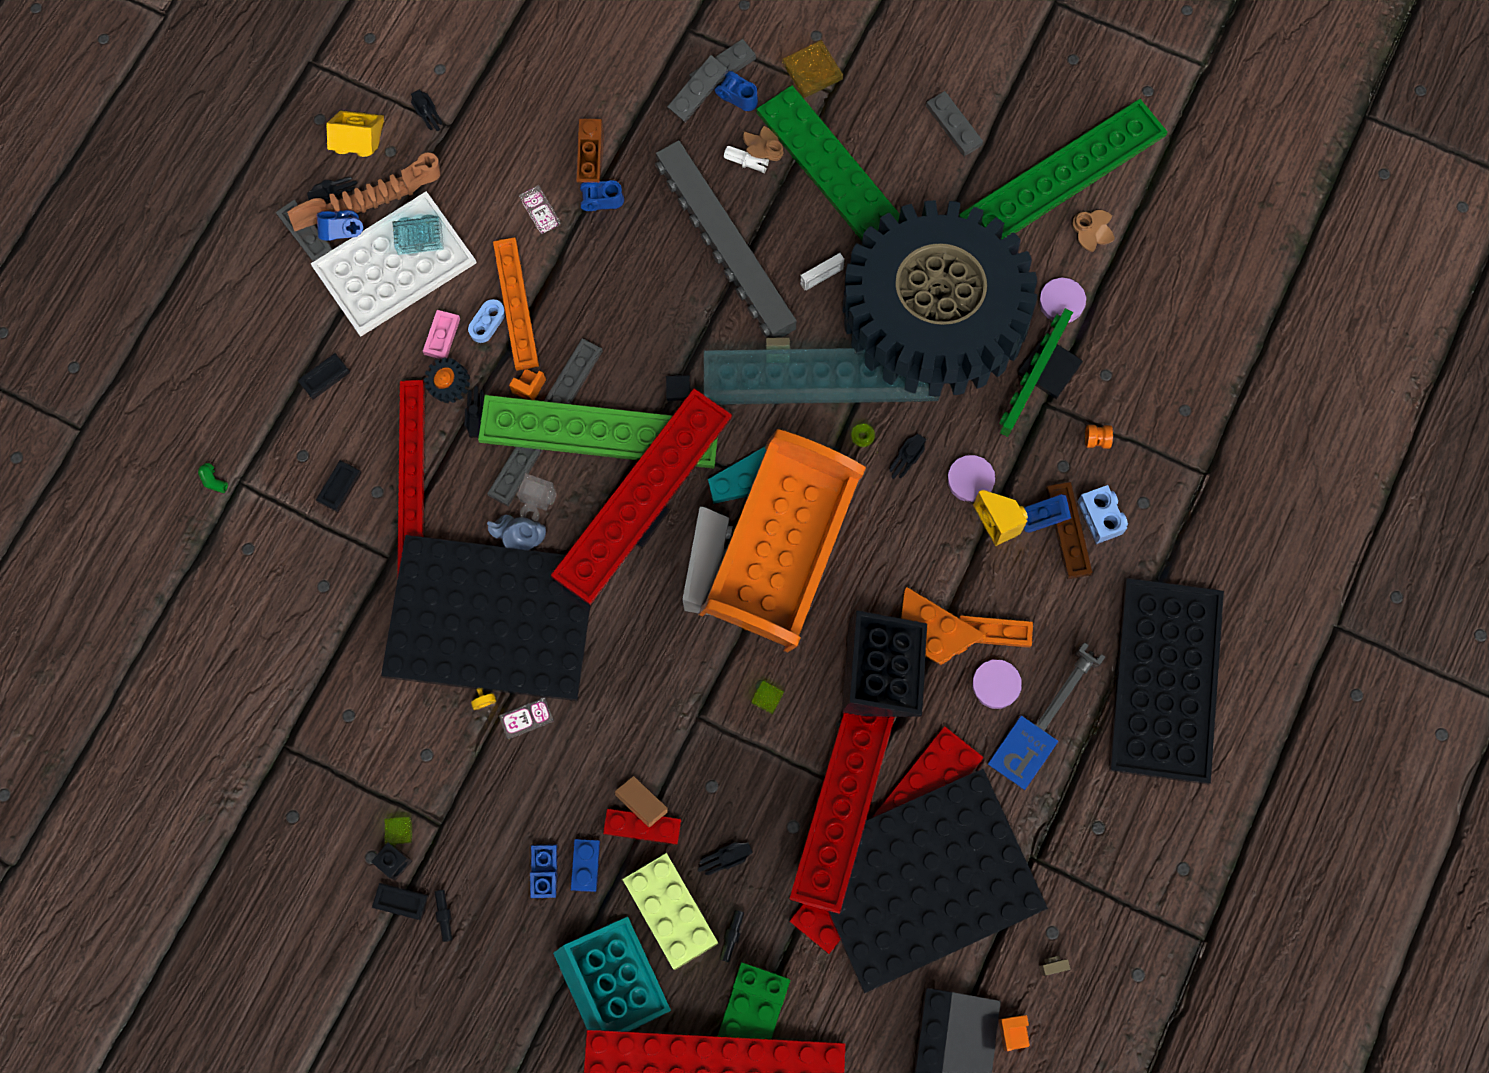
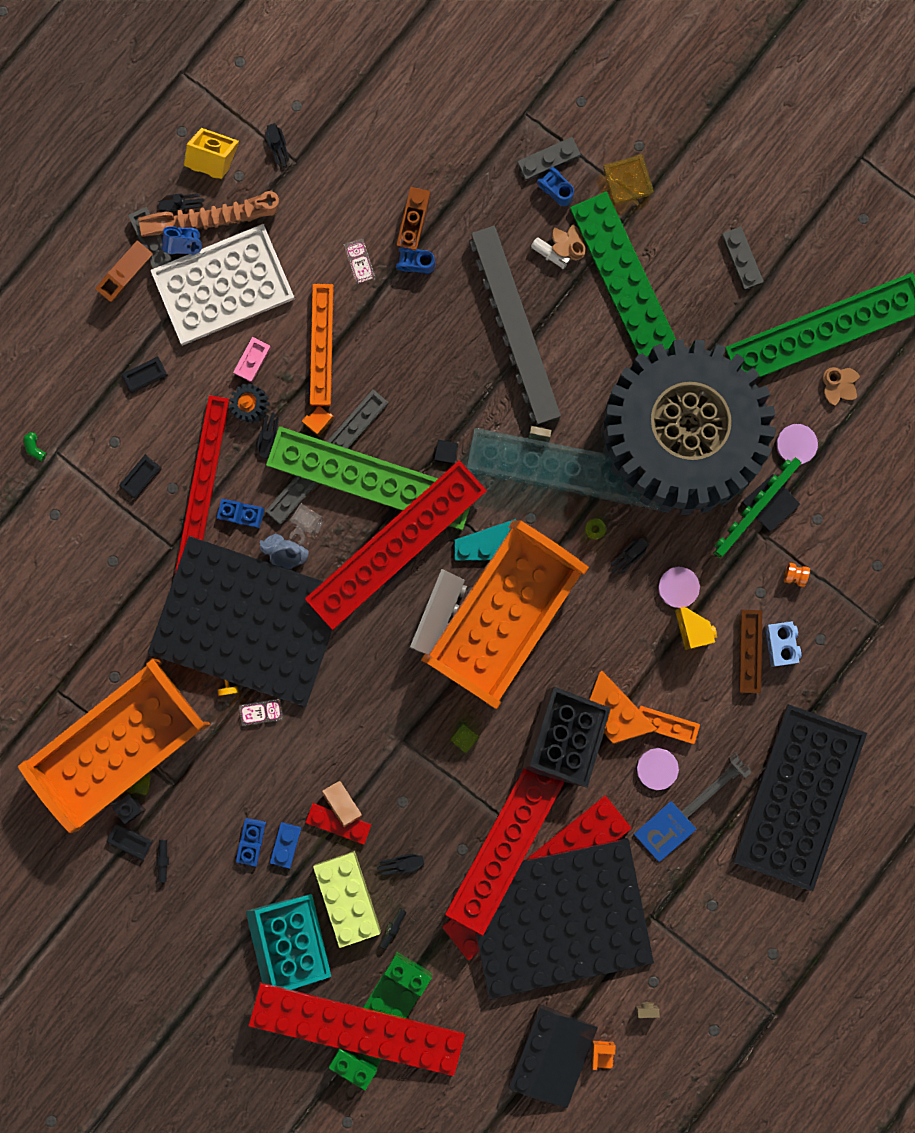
camera: 10 degrees right, 10 degrees up
(281, 269) = (124, 271): none -> dark orange slope
(360, 788) = (112, 747): none -> orange piece
(418, 234) = (248, 265): clear light blue brick -> none
(459, 502) = (240, 513): none -> blue slope
(485, 322) = (292, 355): light blue plate -> none
(698, 88) = (521, 177): dark grey plate -> none
(822, 272) = (593, 374): white tile -> none
(1047, 513) = (734, 634): blue plate -> none

